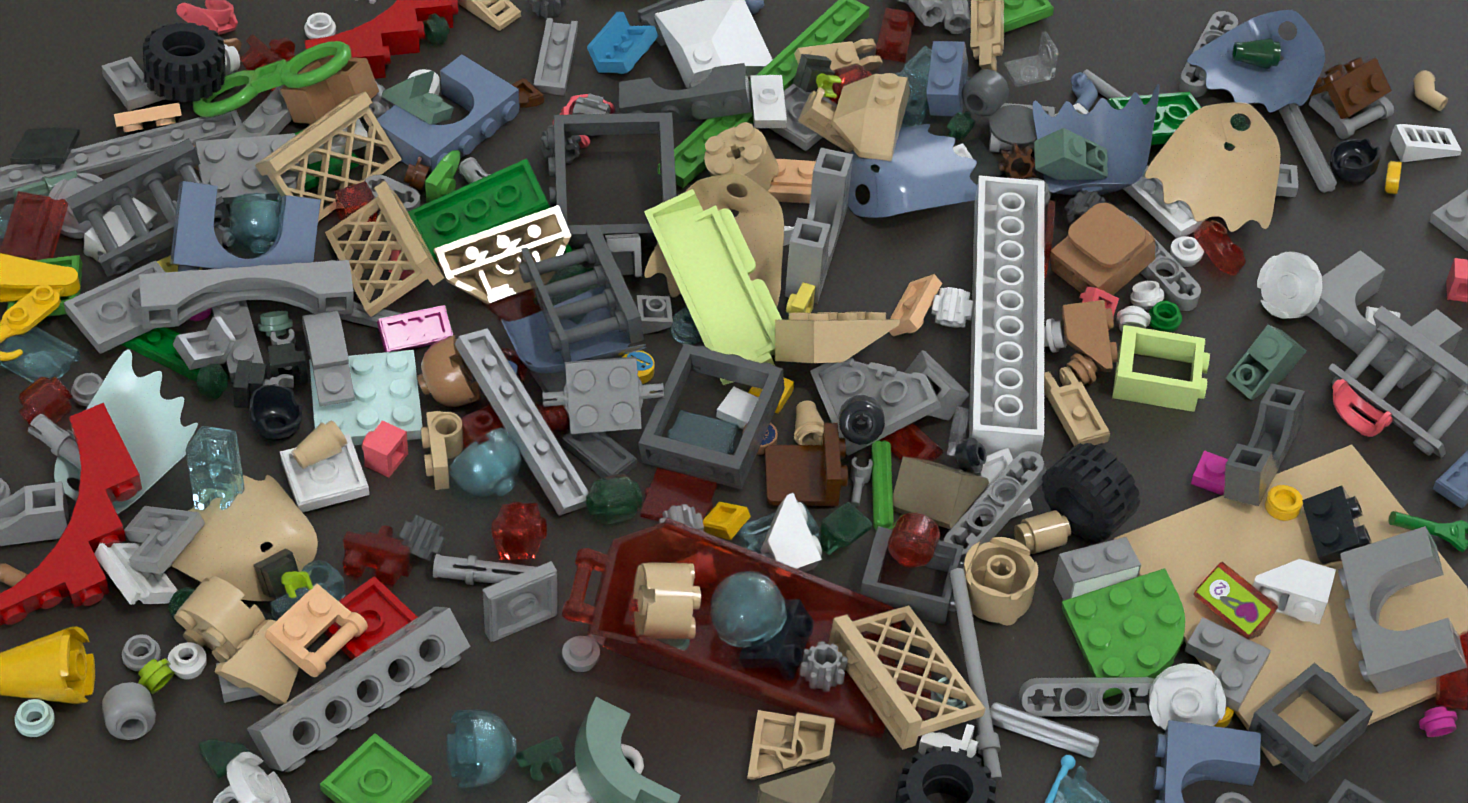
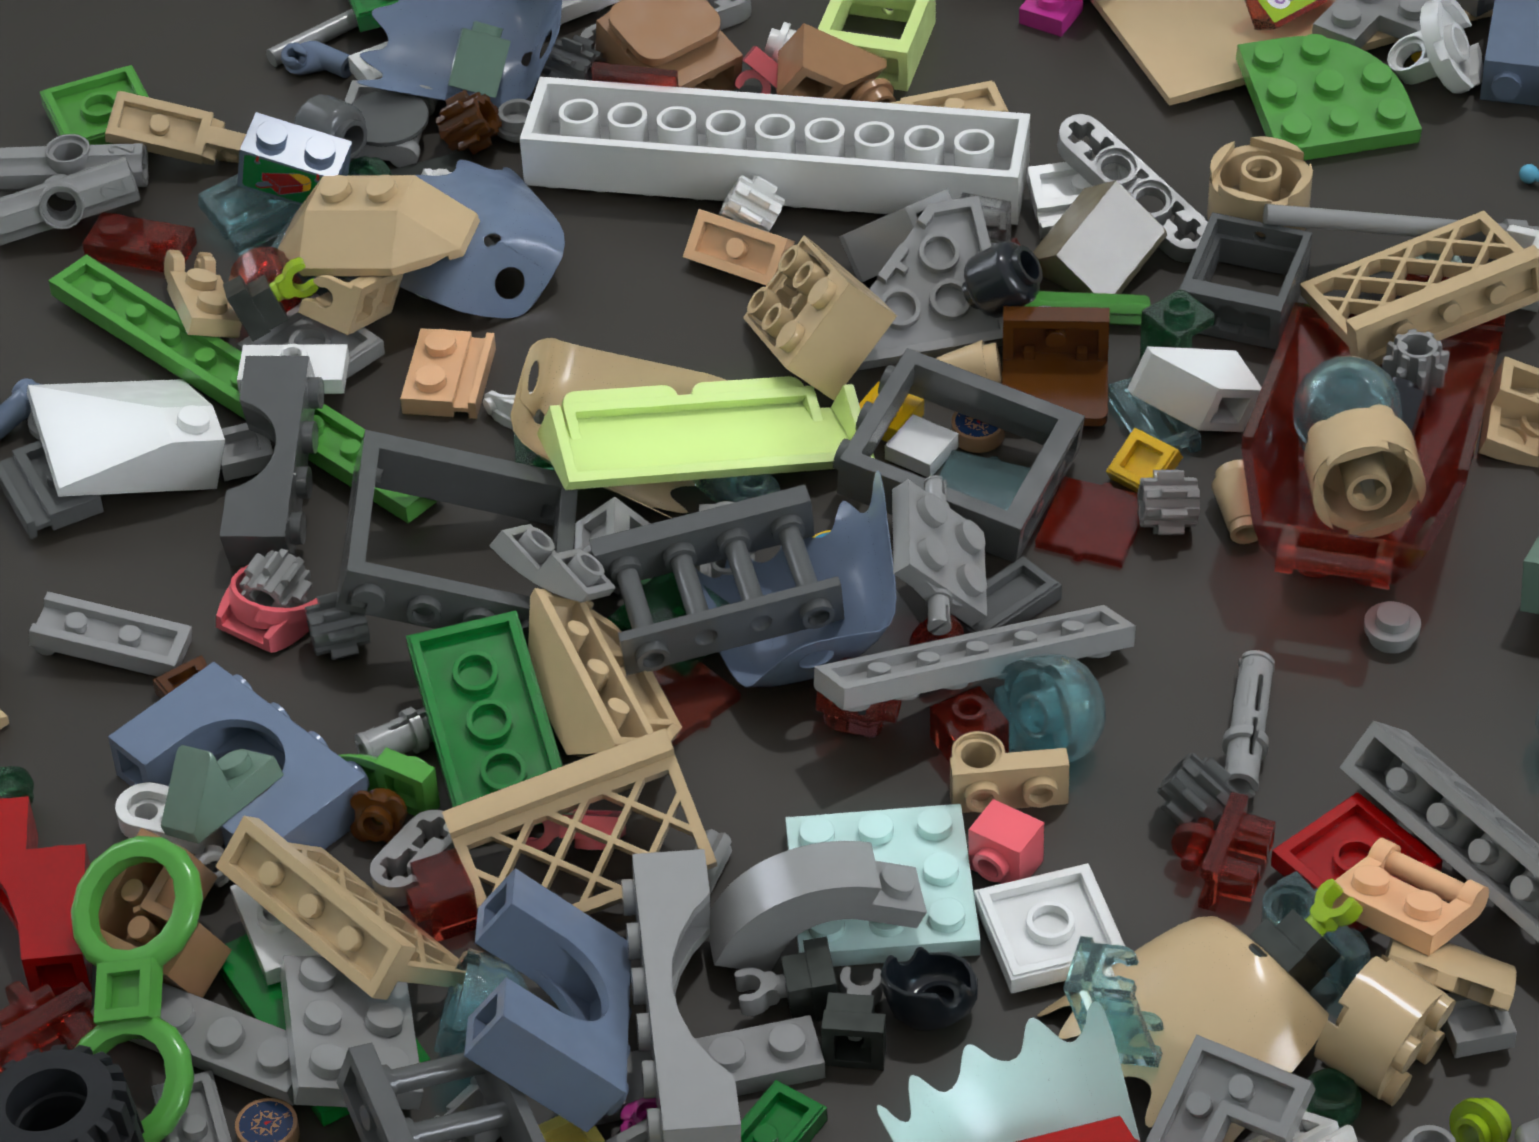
camera: 80 degrees left, 5 degrees down
(187, 668) = (1432, 1106): white plate -> none
(206, 346) = (778, 1074): light grey bracket -> none
(212, 381) = (844, 1083): clear green plate -> none
(275, 321) = (712, 1002): sand green plate -> none
(320, 444) = (1019, 905): tan cone -> none
(414, 329) = (743, 812): plate -> none
(447, 375) = (858, 755): medium nougat cylinder -> none
(518, 531) = (1183, 674): clear red brick -> none
(520, 601) = (1332, 662): light grey plate -> none
(580, 213) = (566, 573): none -> light grey slope
(614, 499) = (1111, 574): clear green head -> none
(620, 45) = (110, 546): dark azure bracket -> none
(742, 152) = (435, 394): tan brick -> none
(803, 300) = (731, 357): light yellow plate -> none
(817, 236) = (539, 305): light grey arch -> none
(913, 540) = (1223, 241): clear red head -> none
(970, 455) = (1047, 197): black plate -> none
(1034, 68) = (250, 93): clear bracket -> none
(1043, 531) = (1167, 154): tan brick -> none
(1044, 730) = (1487, 178): light grey axle -> none
(1091, 491) = (1126, 81): black tyre -> none
(1092, 703) = (1435, 137): light grey beam -> none
(1095, 567) = (1233, 102): light grey brick -> none
(1146, 294) = (739, 27): white plate -> none
(1165, 316) = (772, 15): green plate -> none

